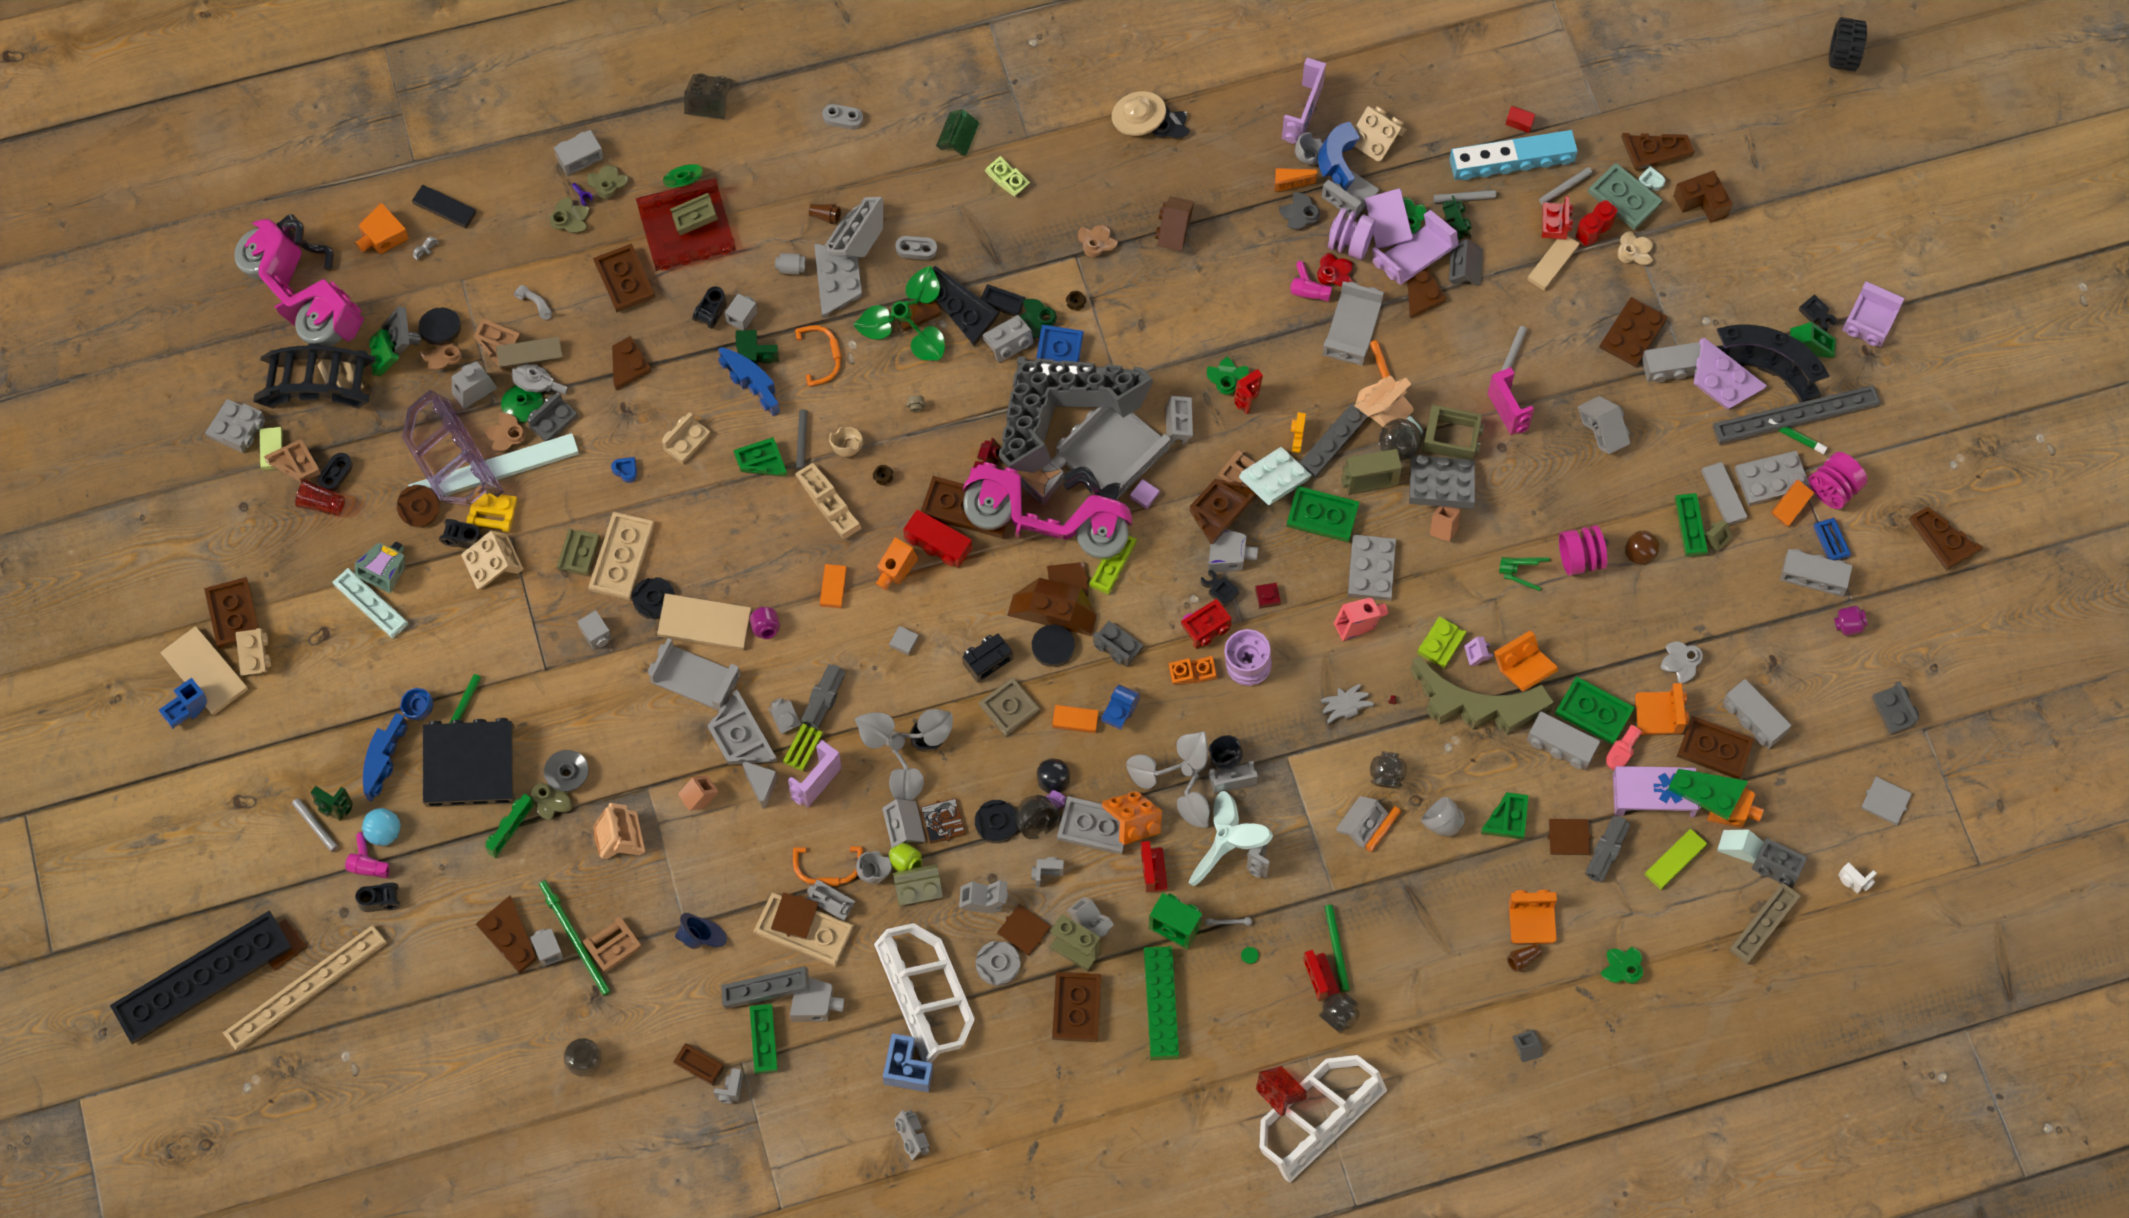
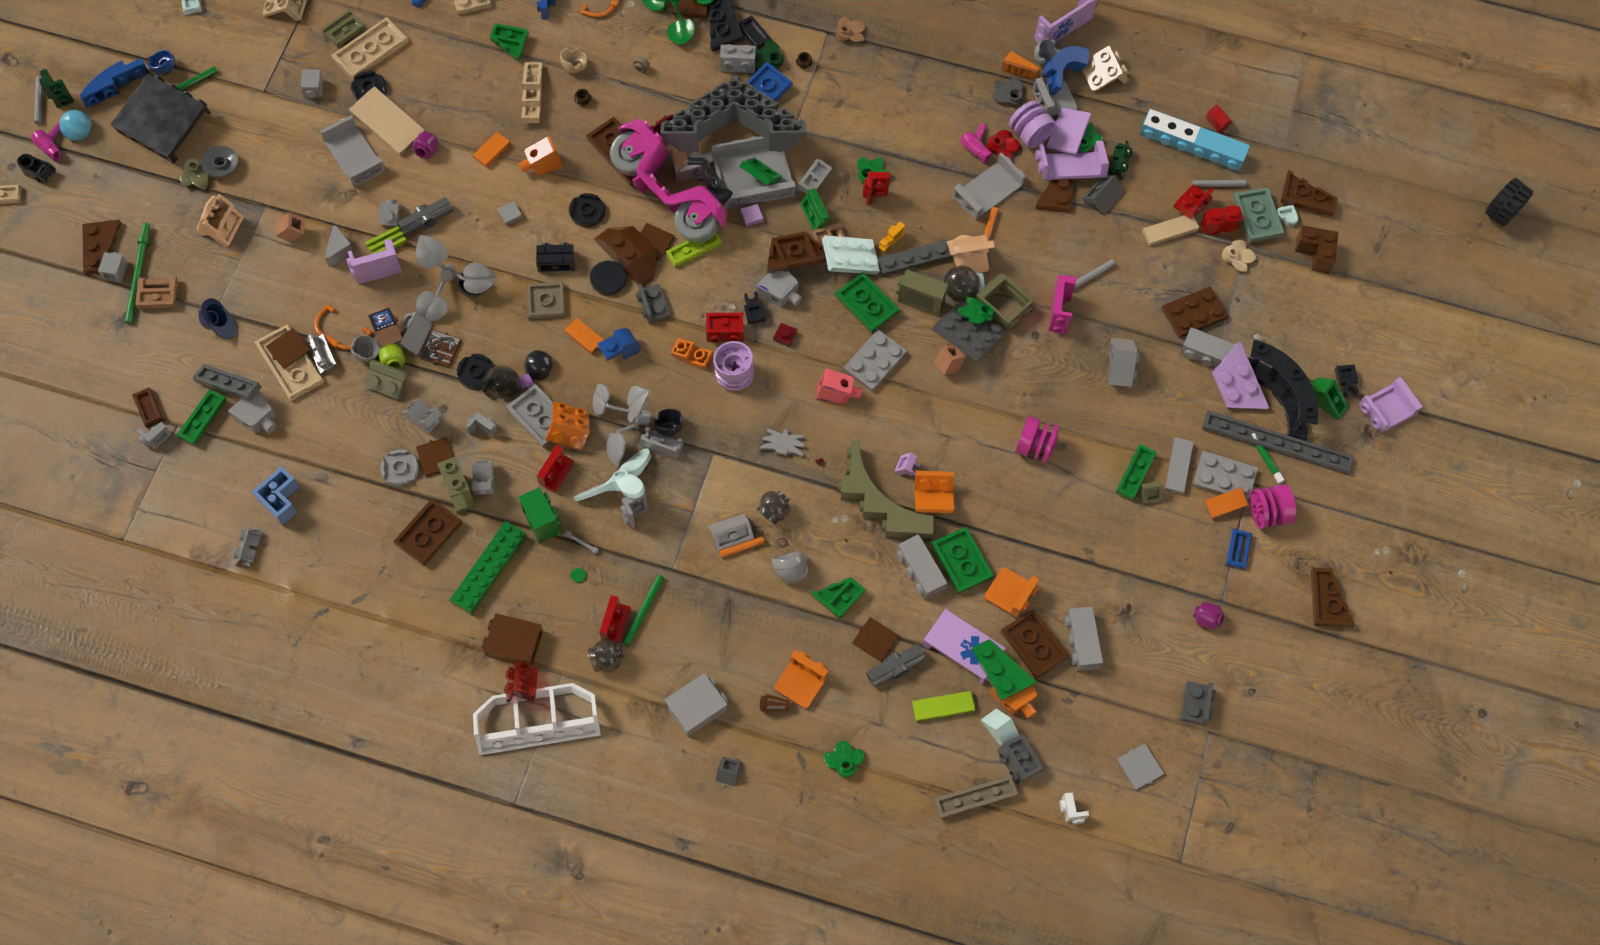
camera: 30 degrees right, 0 degrees up
(509, 825) = (154, 174): green plate -> none
(582, 1057) = (74, 353): clear smoke piece -> none
(739, 734) = (350, 207): light grey wing -> none
(801, 443) = (547, 43): dark grey bar -> none
(878, 832) = (386, 327): none -> brick
(904, 990) = (321, 443): white plate -> none
(937, 539) = (584, 159): red brick -> none
(978, 589) = (587, 210): none -> black tile
(1124, 443) = (761, 171): none -> green plate
(1175, 220) = (911, 45): reddish brown brick -> none
(1206, 452) = (814, 210): none -> green plate
(1238, 1055) = (512, 639): none -> reddish brown brick
(1436, 458) = (976, 311): none -> green plate
(1441, 642) = (886, 443): lime plate -> none
(1455, 1003) = (696, 704): none -> light grey brick
(1465, 196) = (1137, 148): light grey bar -> none
(1509, 565) = (977, 419): green plant -> none
(1622, 750) = (961, 602): coral arm -> none
(1642, 547) = (1087, 466): reddish brown hair -> none
(1679, 662) = (1053, 565): light grey plate -> none
(1815, 572) = (1207, 564): light grey brick -> none

